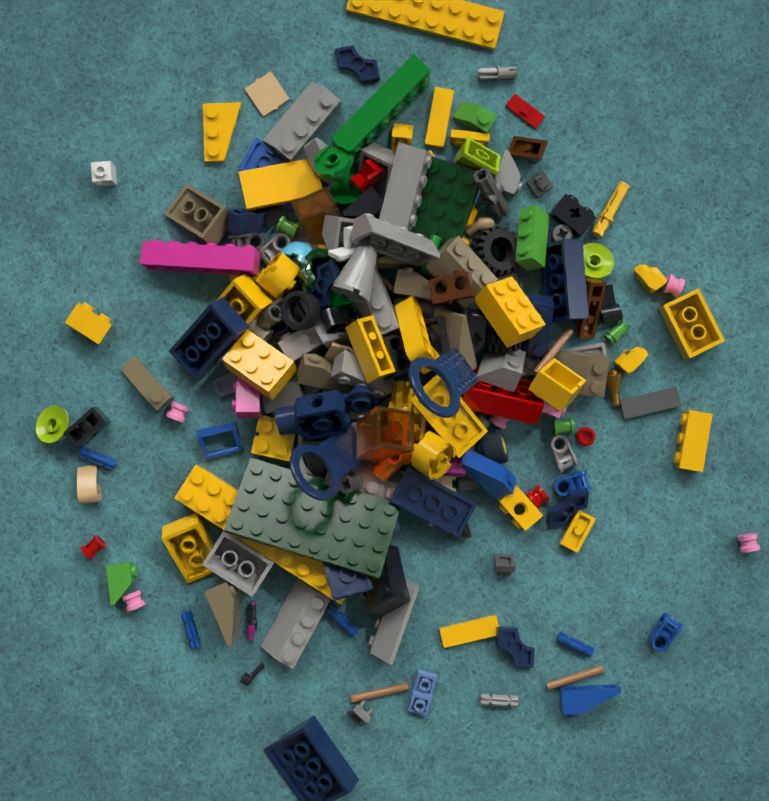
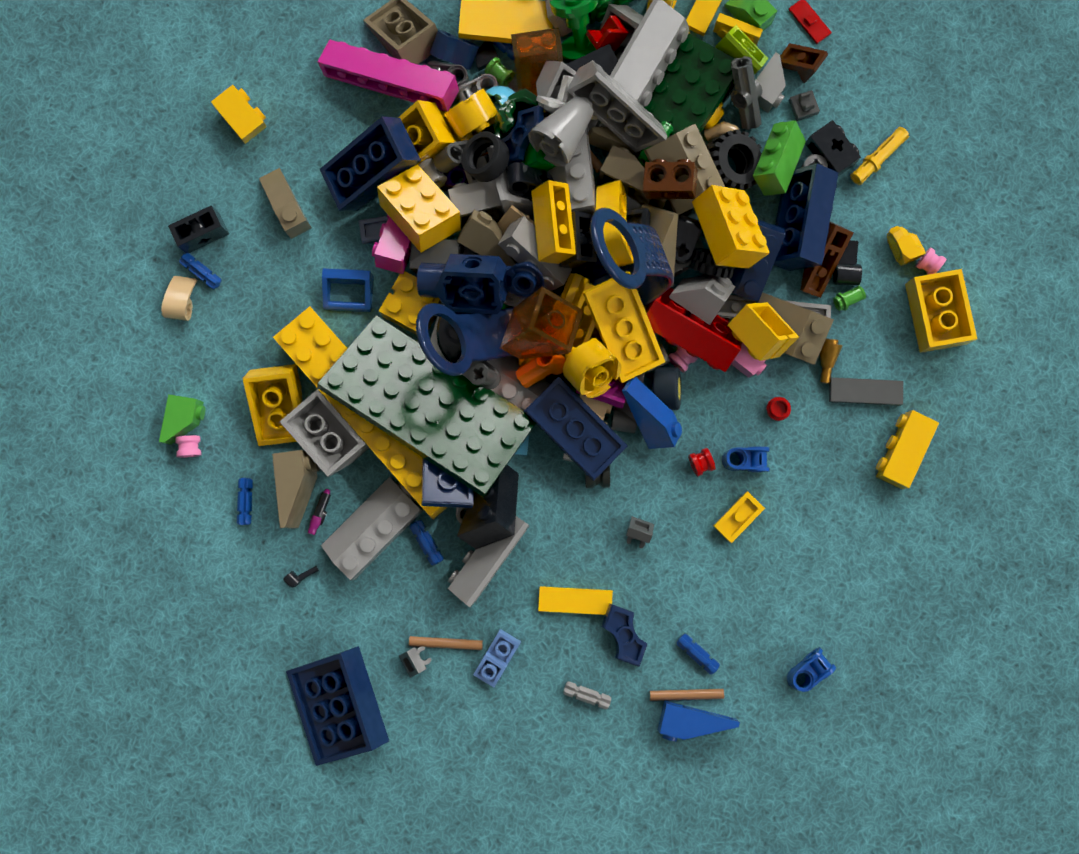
camera: 20 degrees right, 5 degrees down
(52, 424) = (159, 215): lime dish -> none
(93, 547) = (162, 370): red bush -> none
(177, 411) = (308, 243): bright pink wheel -> none
(527, 517) = (677, 455): yellow brick -> none
(554, 350) = (773, 291): medium nougat piece -> none
(562, 454) = (746, 421): light grey piece -> none
(563, 426) = (755, 388): bright green bush -> none
(573, 502) = (725, 489): dark blue tile -> none
(601, 257) = (848, 208): lime dish -> none
(630, 360) = (856, 333): yellow rock -> none
(748, 542) = (942, 591): bright pink wheel -> none

